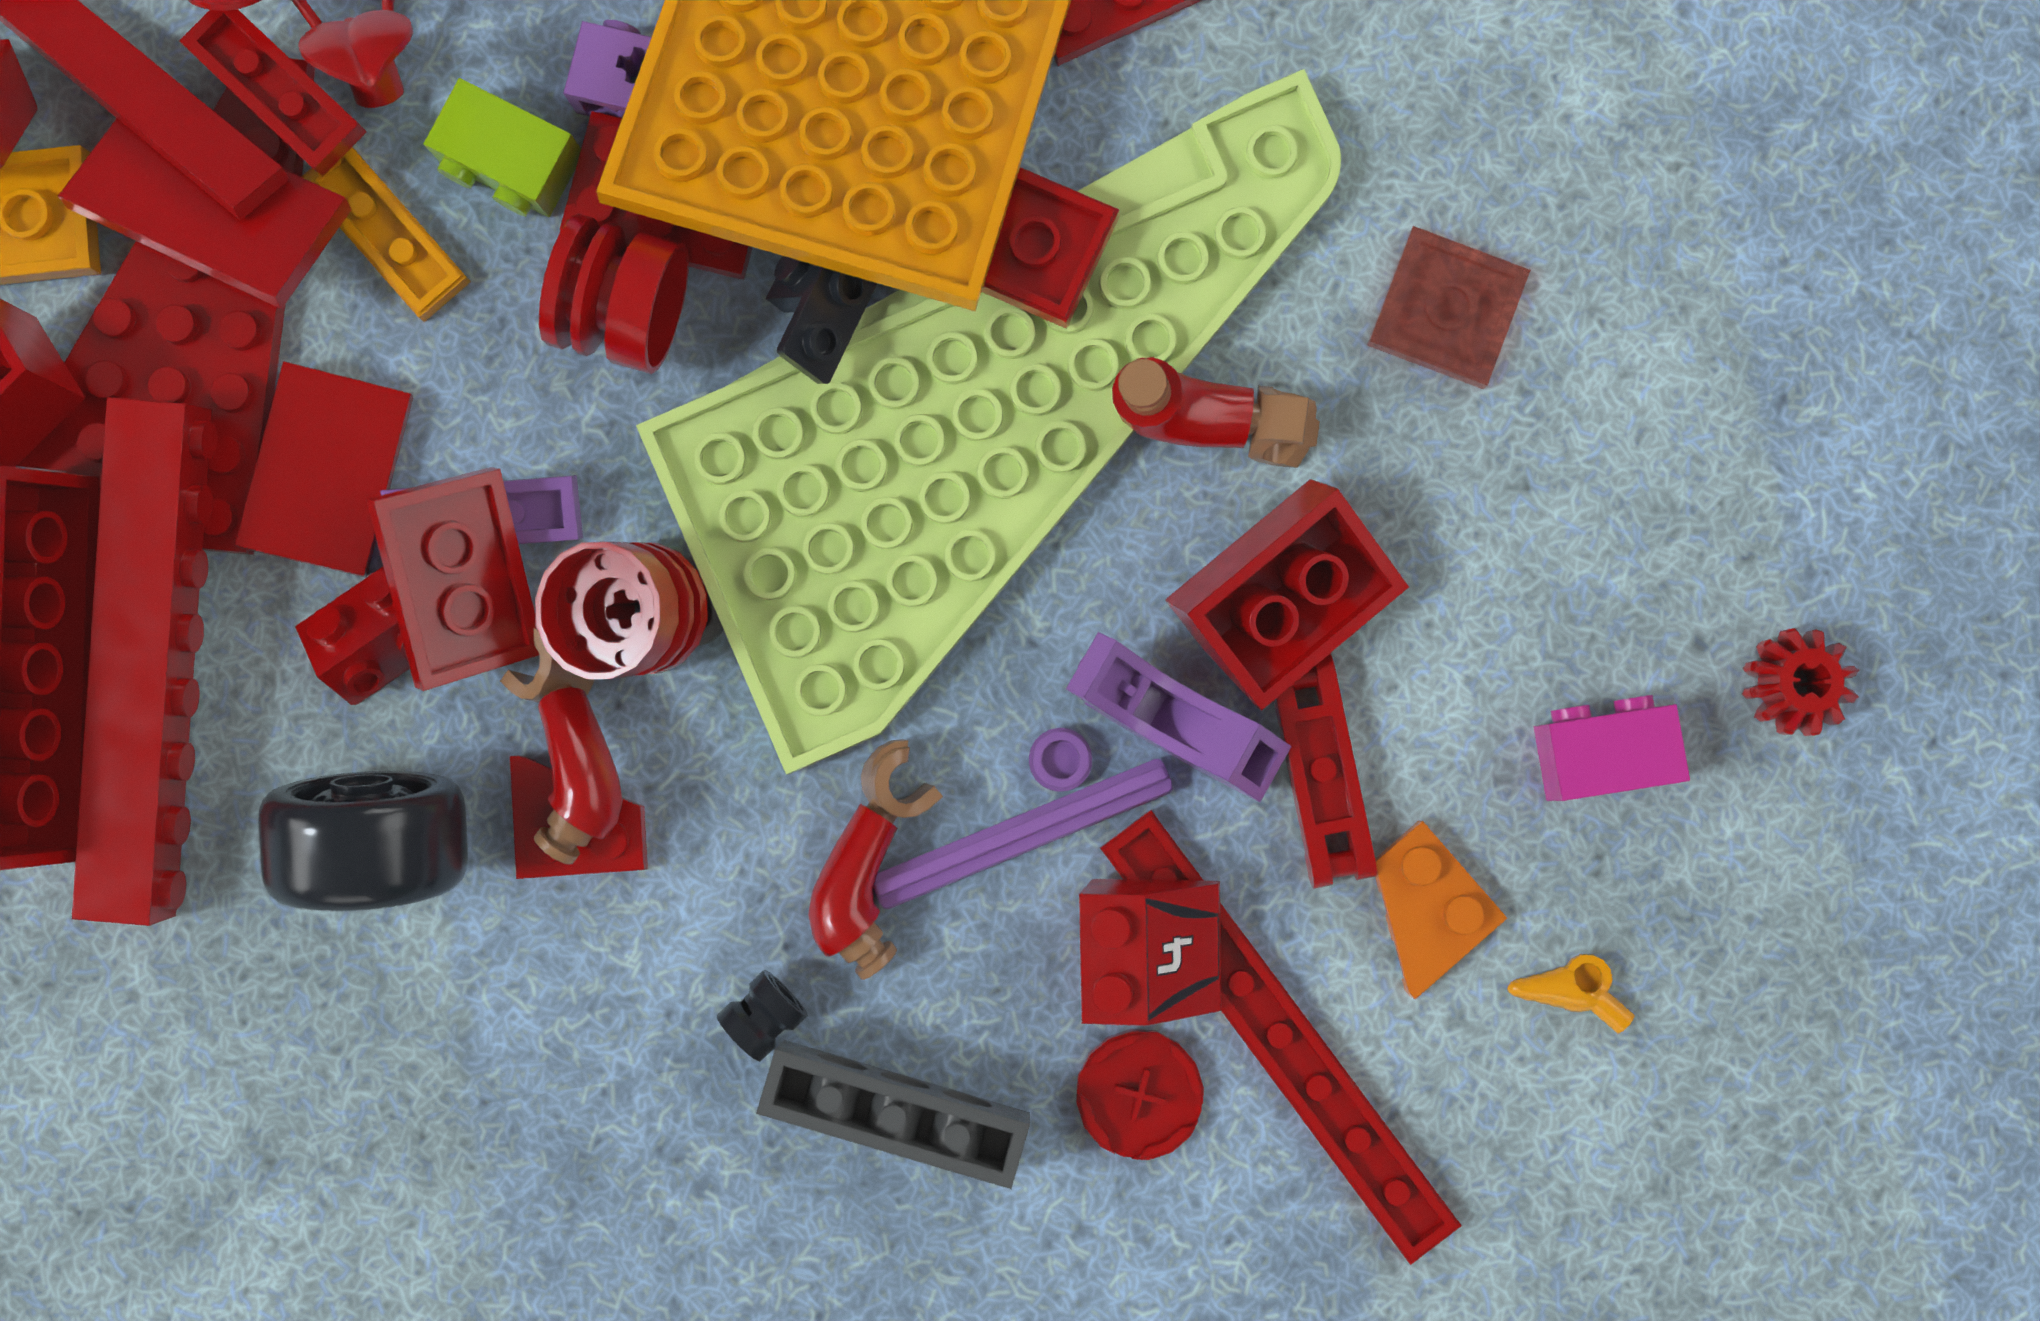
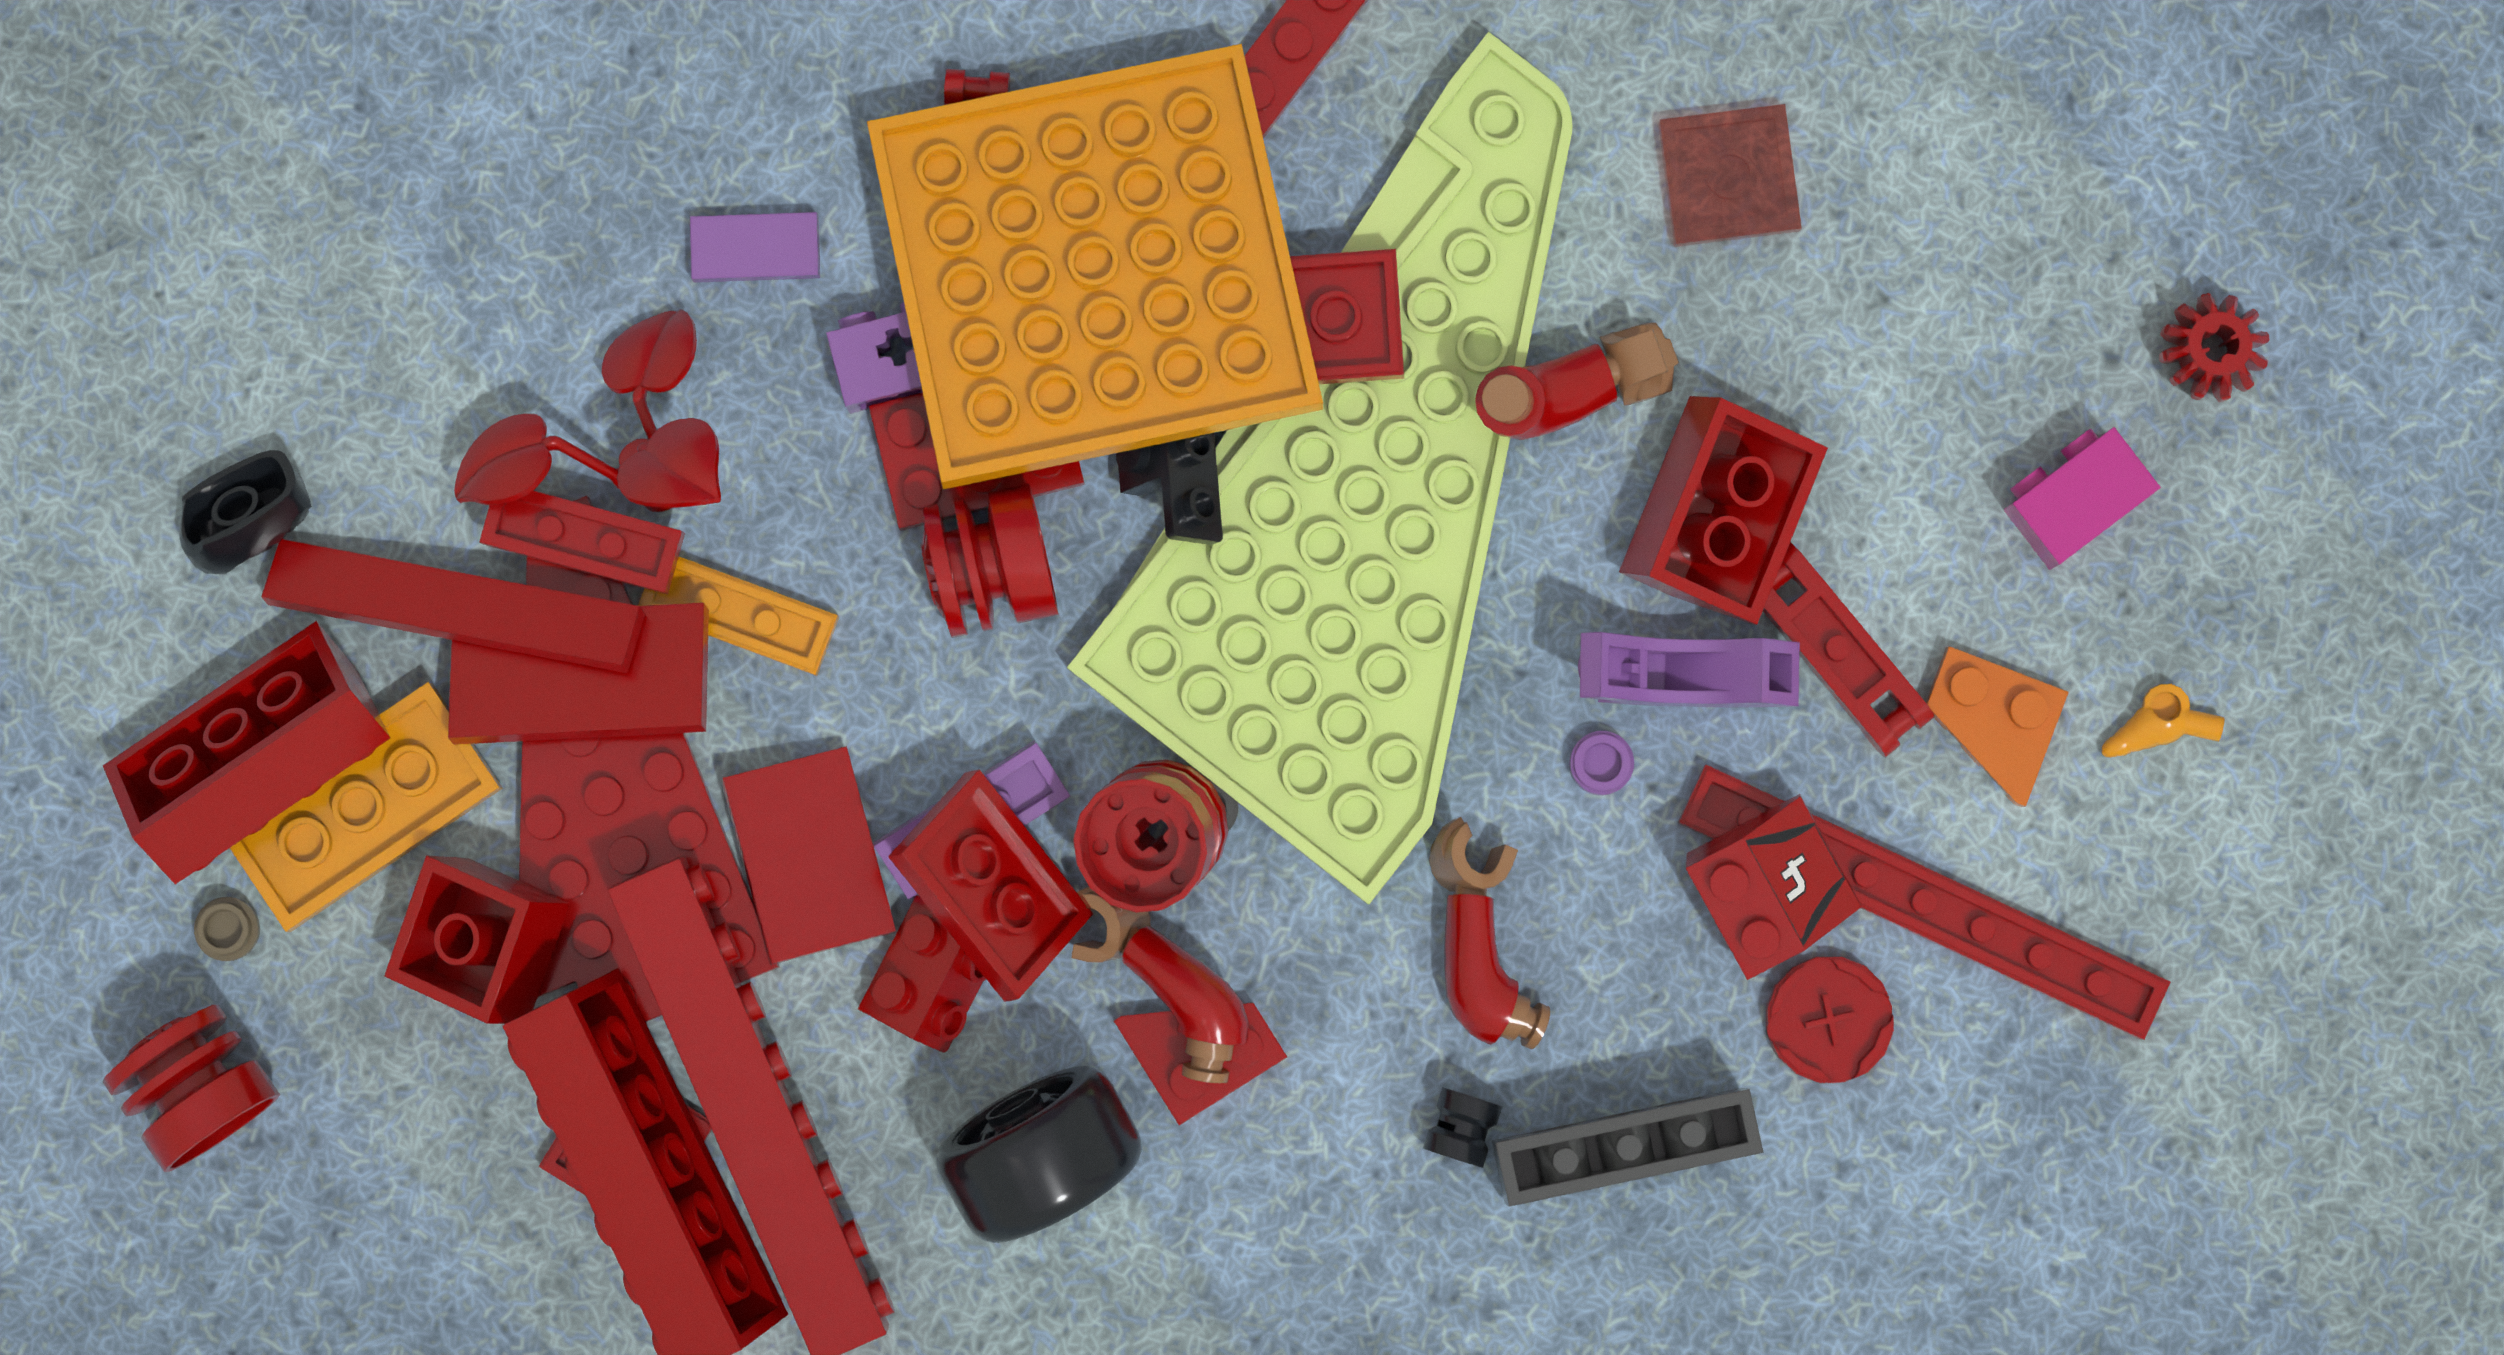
camera: 30 degrees left, 0 degrees up
(503, 149) = (811, 484): lime brick -> none
(1022, 833) = (1604, 845): medium lavender axle -> none

